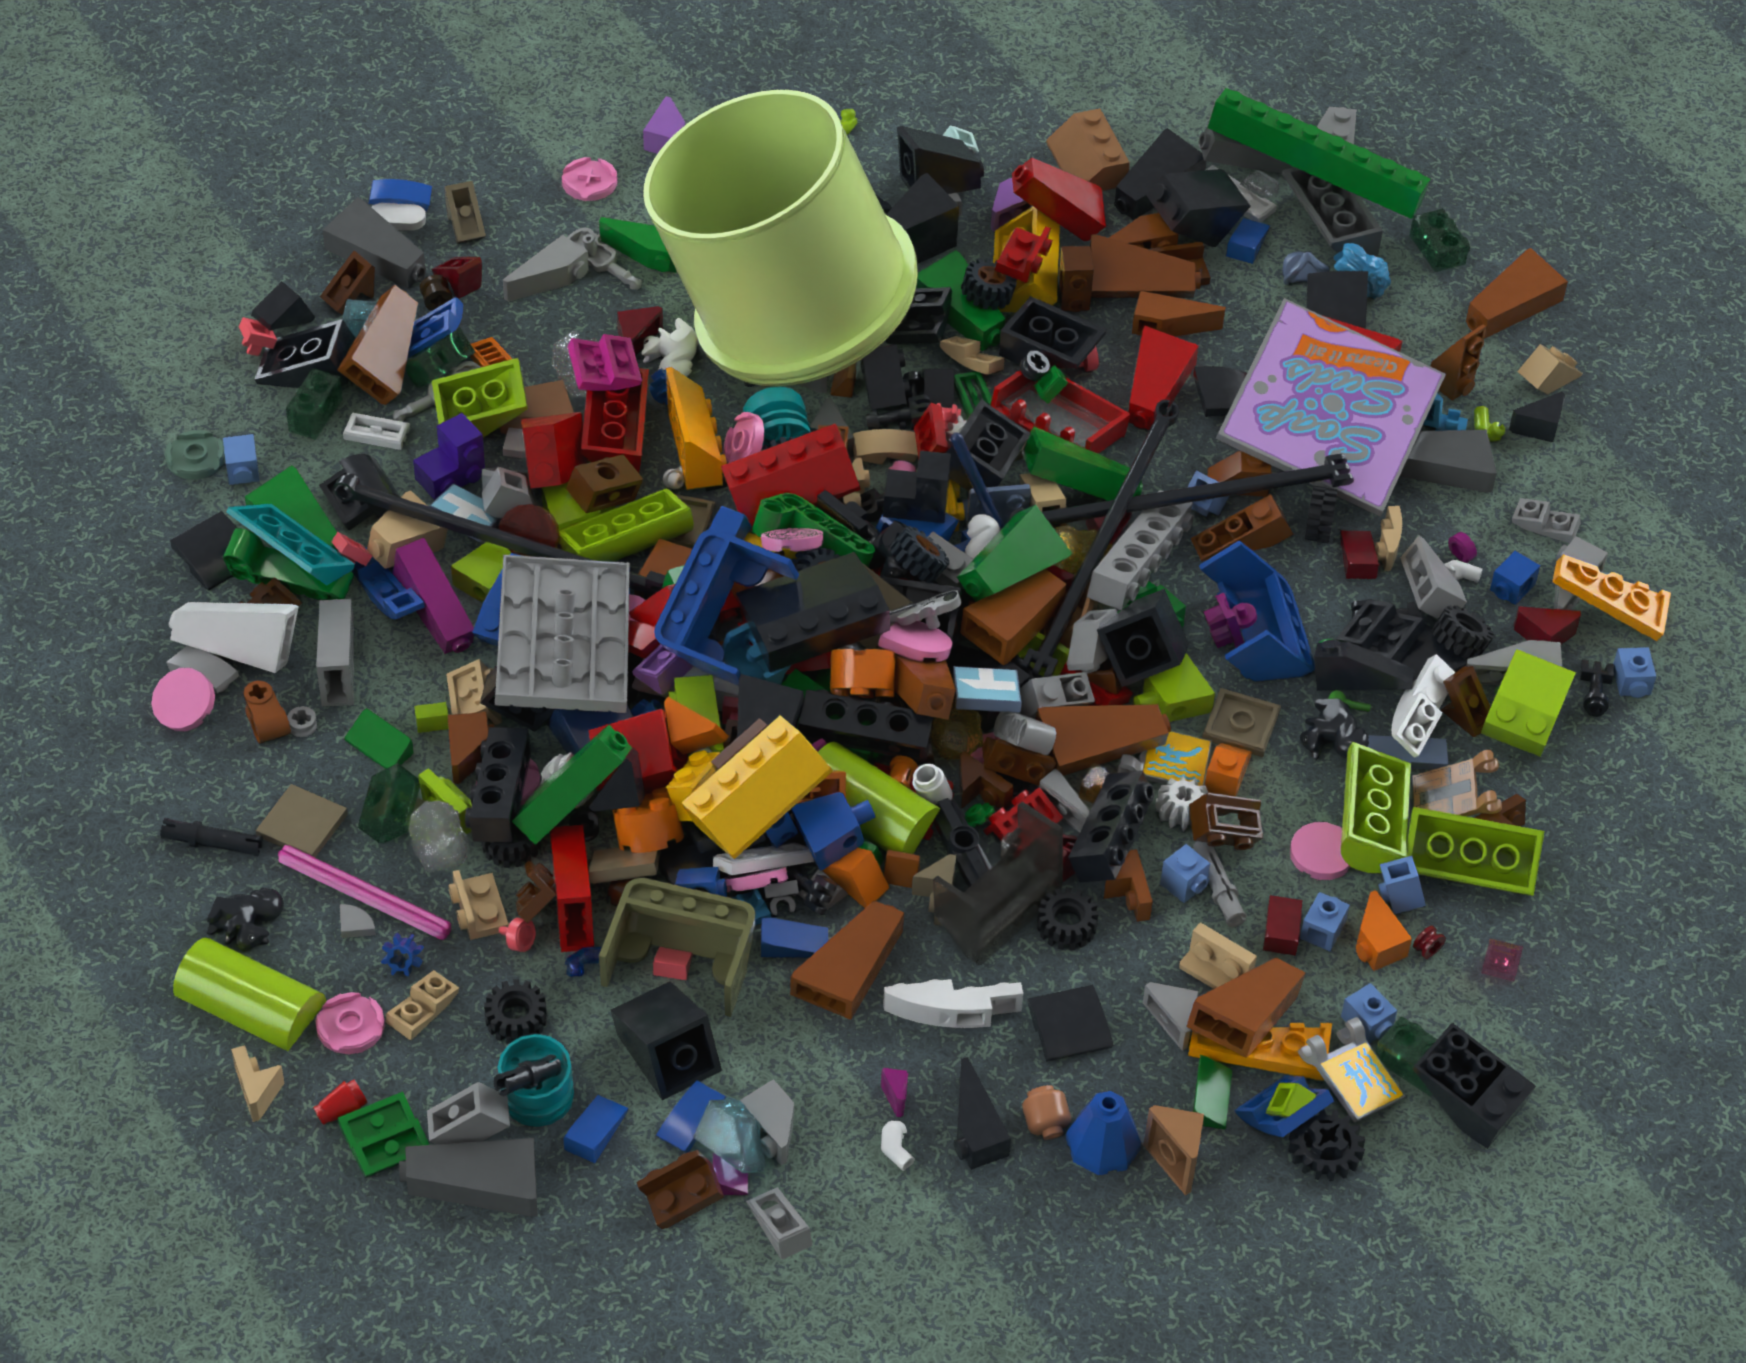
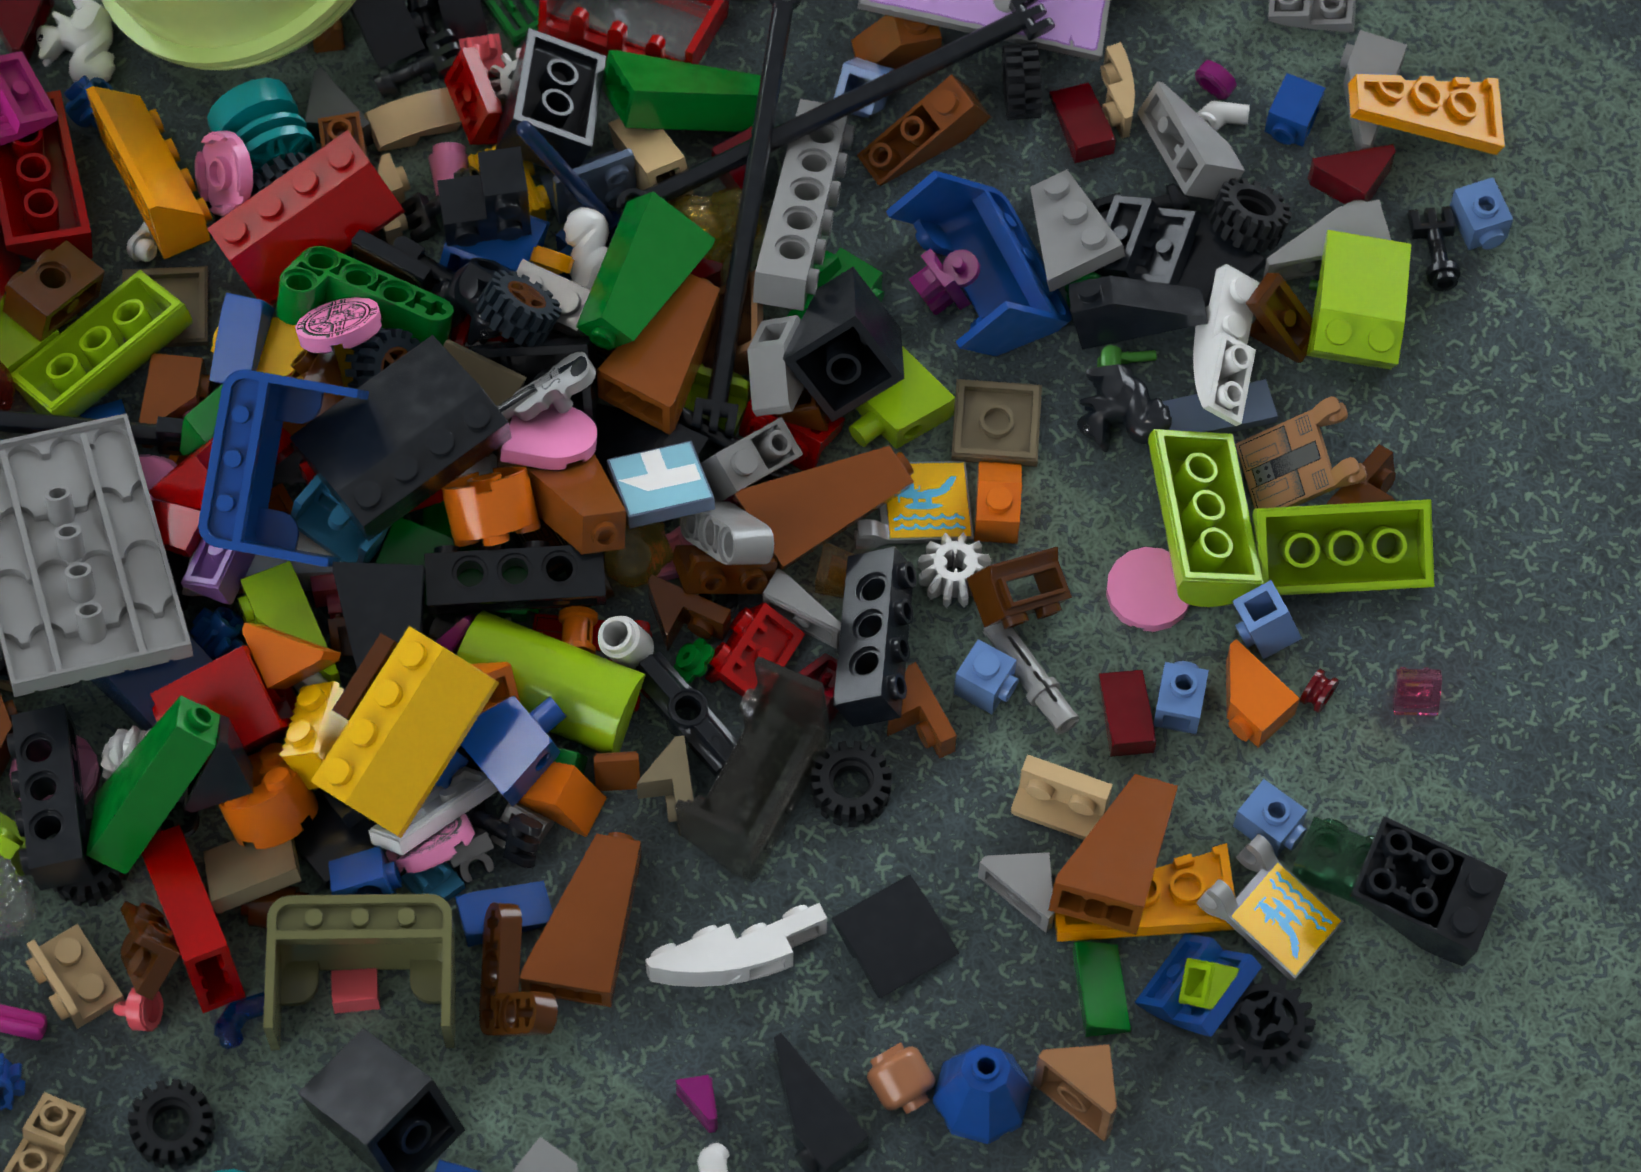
camera: 15 degrees left, 15 degrees up
(780, 988) = (502, 1006): none -> reddish brown beam
(955, 539) = (552, 260): none -> light orange tile
(1329, 613) = (1071, 231): none -> light grey wing

